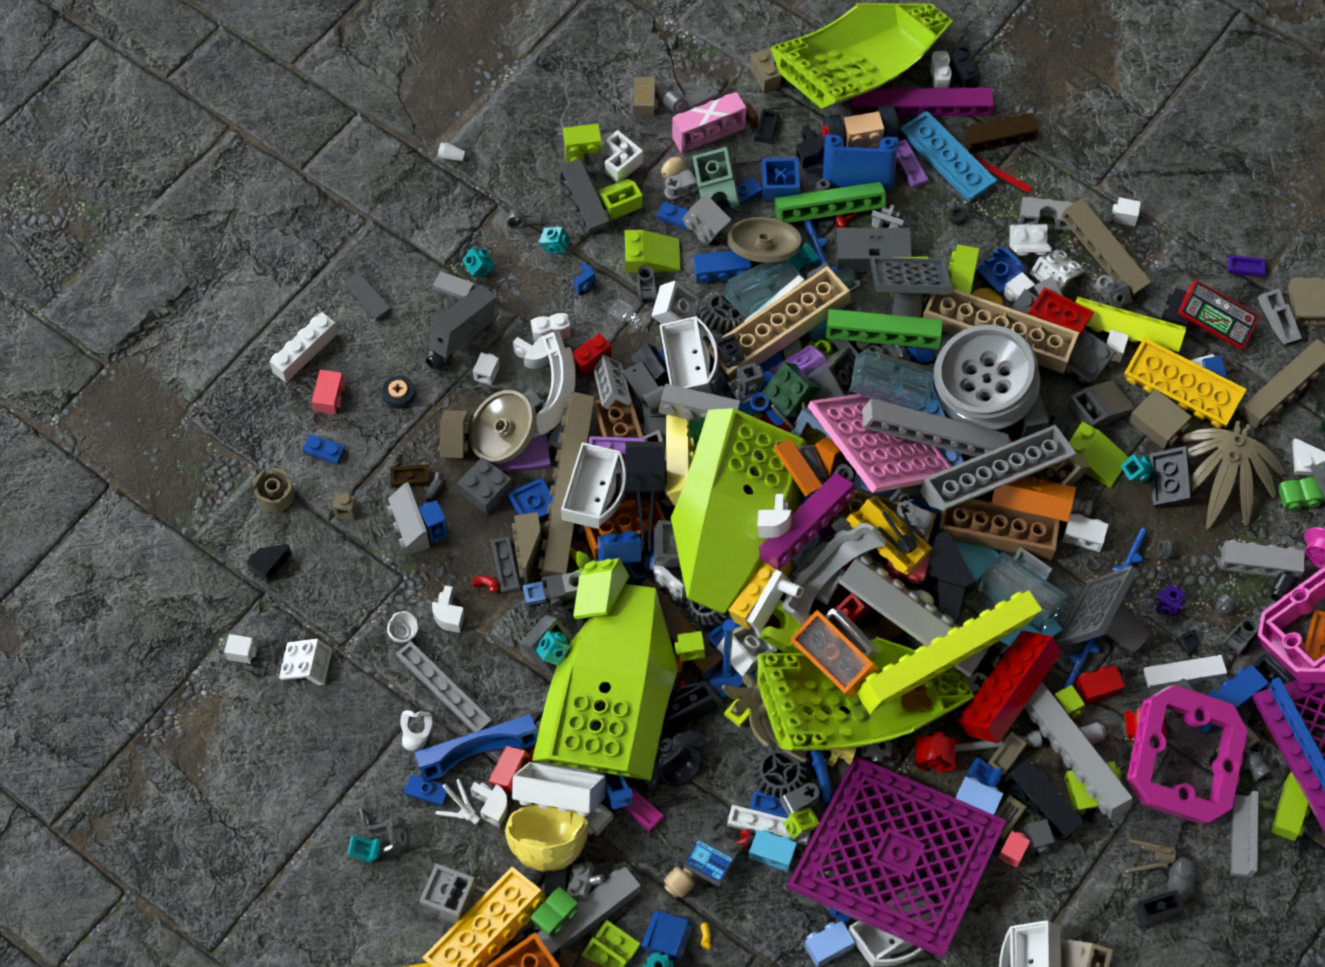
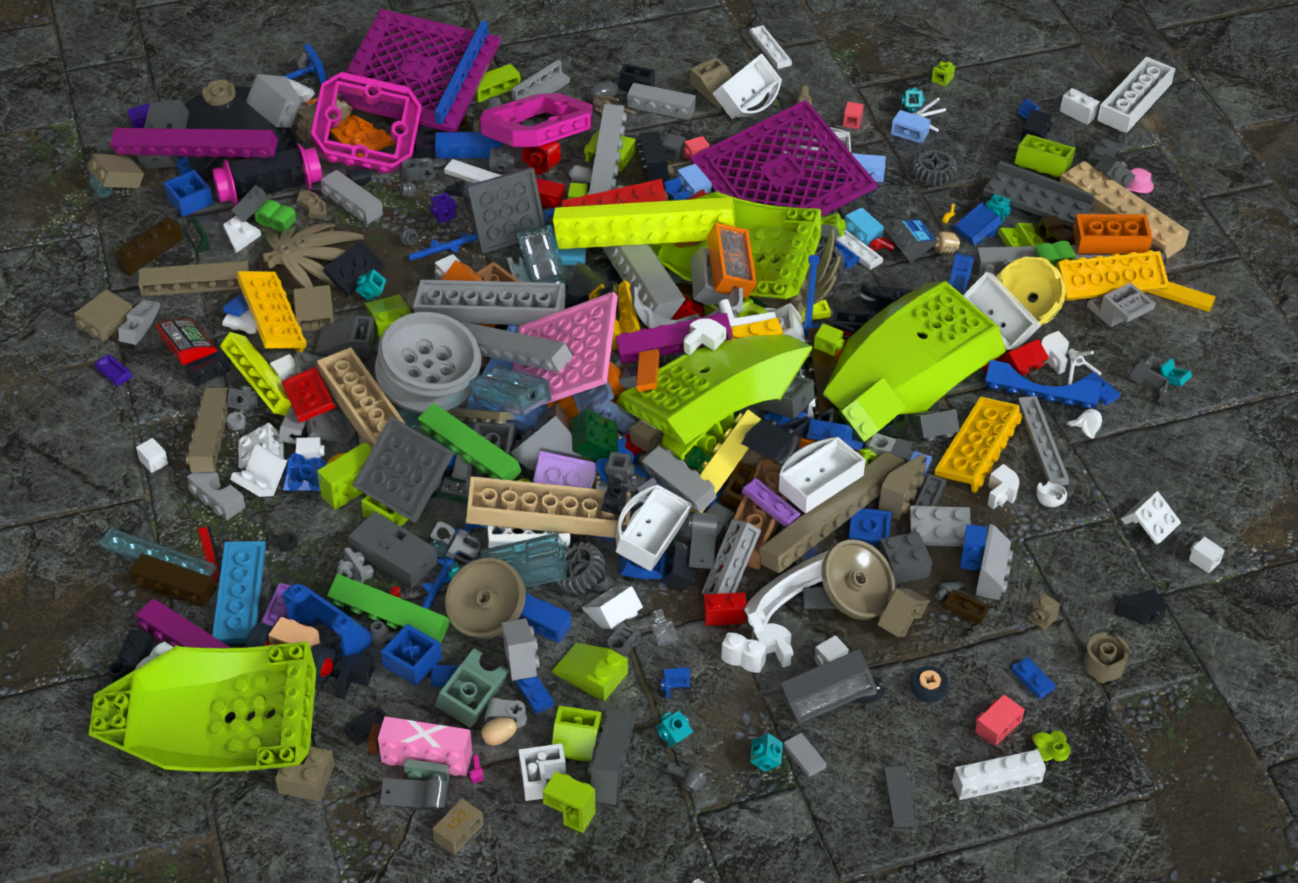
camera: 145 degrees left, 15 degrees down
(282, 398) = (1052, 745): none -> lime plate
(476, 538) = (940, 524): none -> light grey plate
(488, 581) = (952, 493): red arm -> none
(497, 648) = (979, 442): none -> yellow bracket
(553, 647) = (938, 397): teal brick -> none
(663, 139) = (476, 774): none -> dark pink hand
(1032, 145) = (134, 546): none -> clear light blue plate
(1109, 898) = (661, 101): none -> light grey brick
(1286, 535) = (312, 203): none -> dark tan tile

